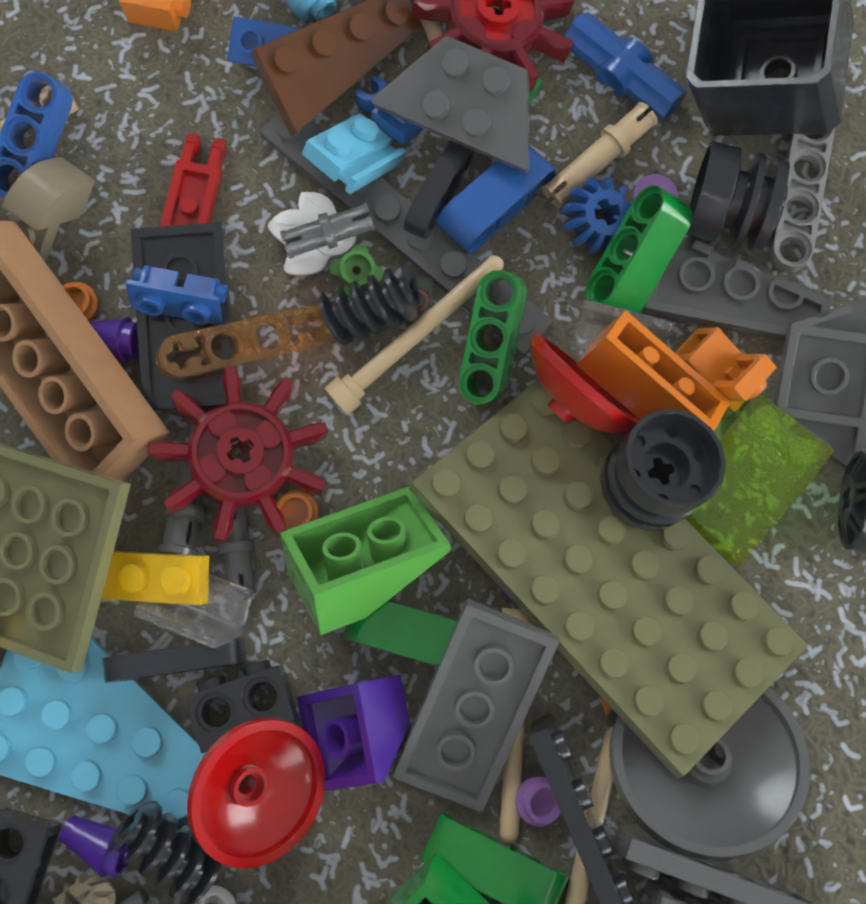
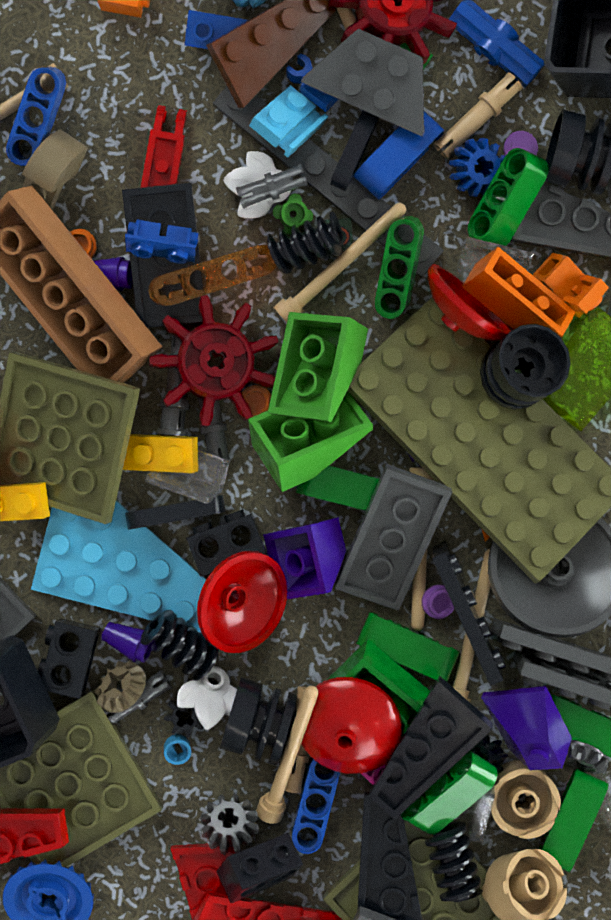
camera: 10 degrees left, 10 degrees up
(376, 461) = (316, 365): none -> bright green slope

